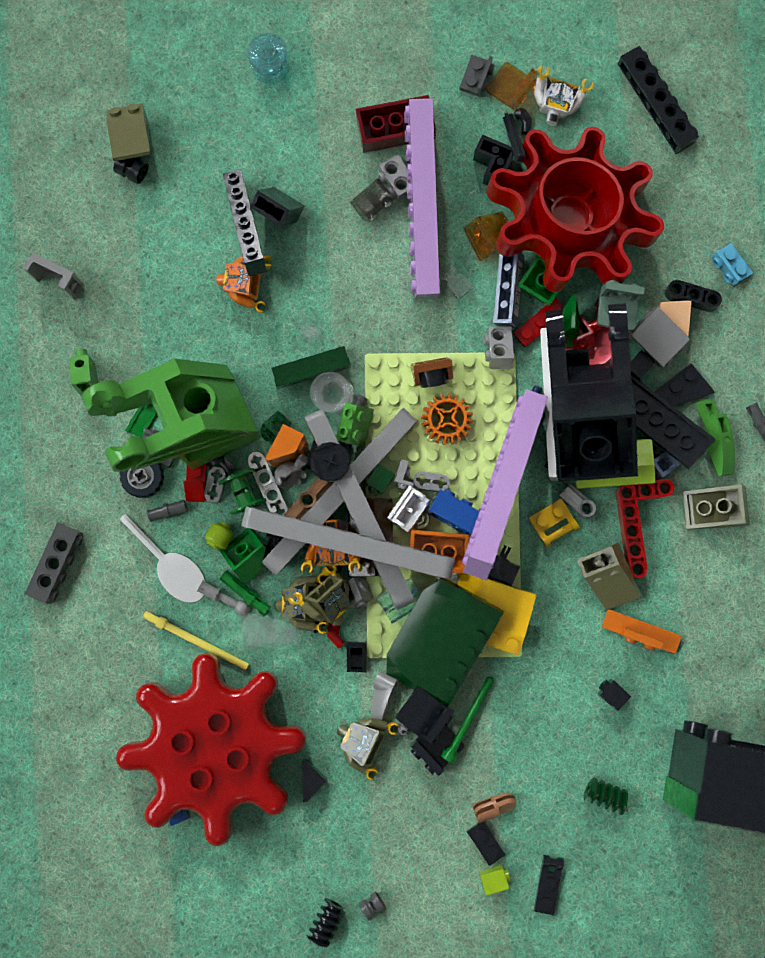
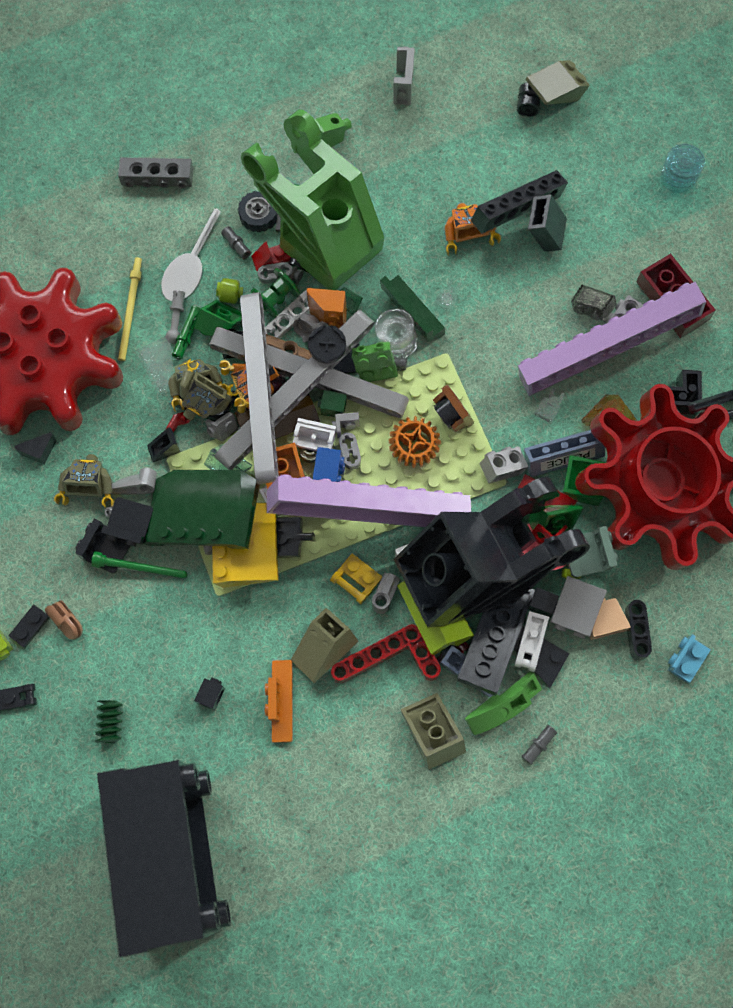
camera: 70 degrees right, 10 degrees down
(672, 390) = (531, 640): none -> white plate

